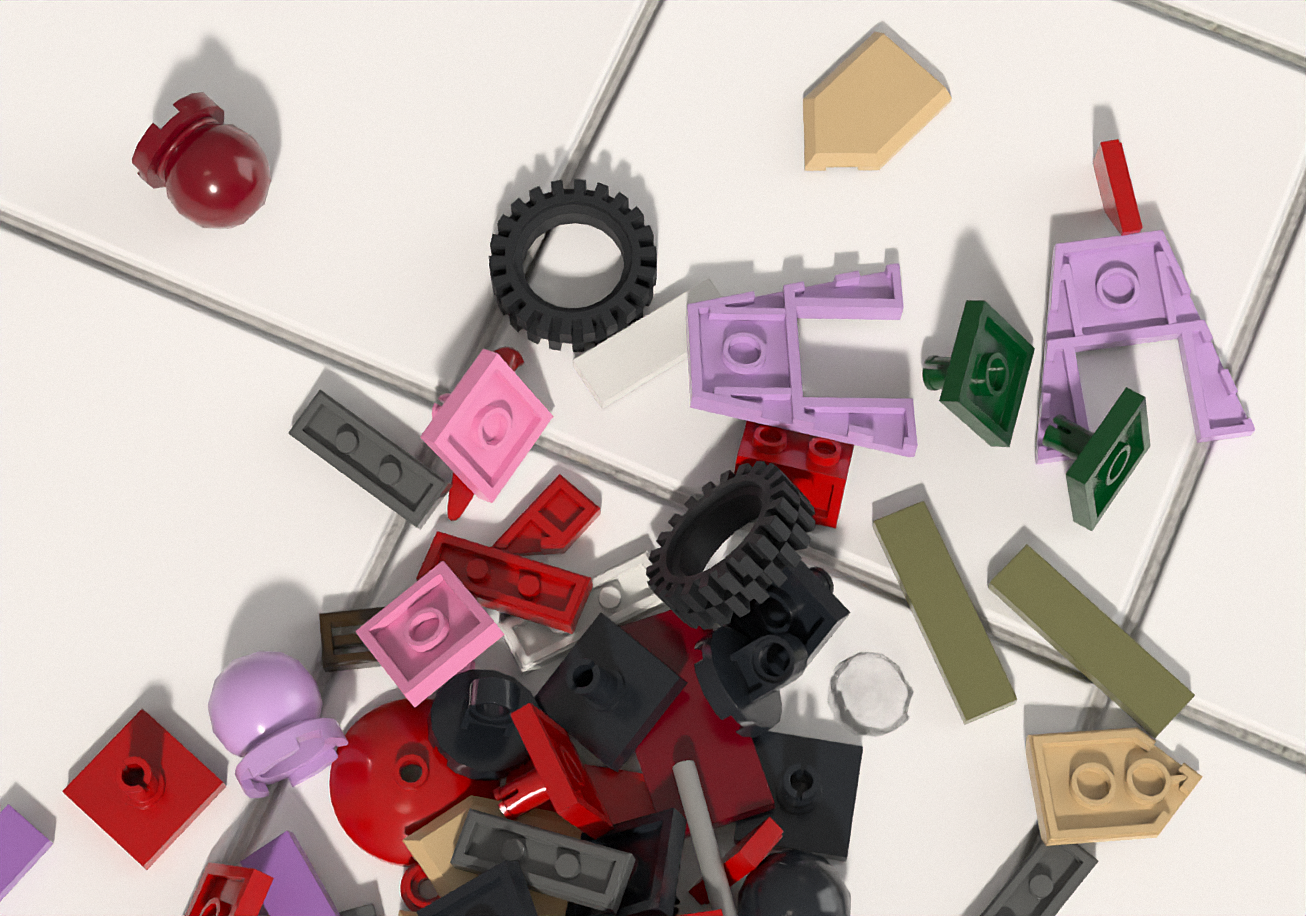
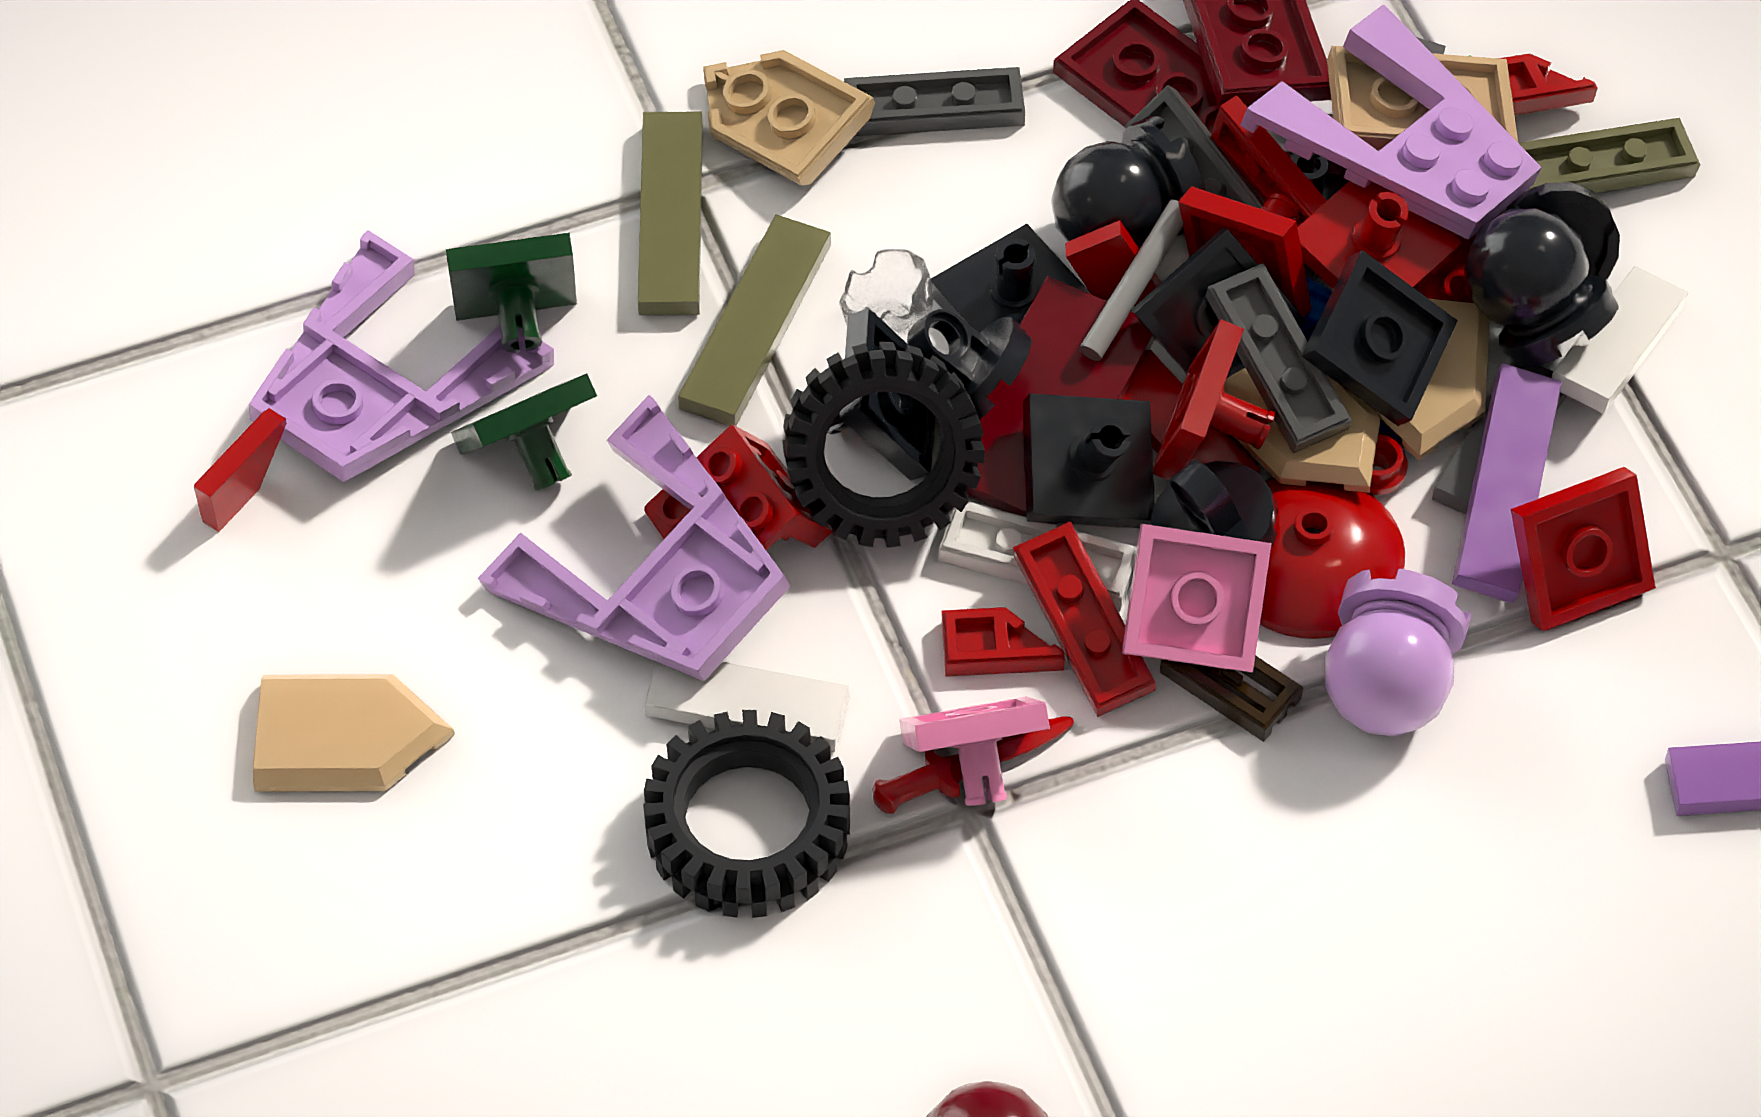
camera: 135 degrees left, 15 degrees down
(144, 789) = (1547, 729): red tile -> none
(370, 459) = (1094, 818): dark grey tile -> none

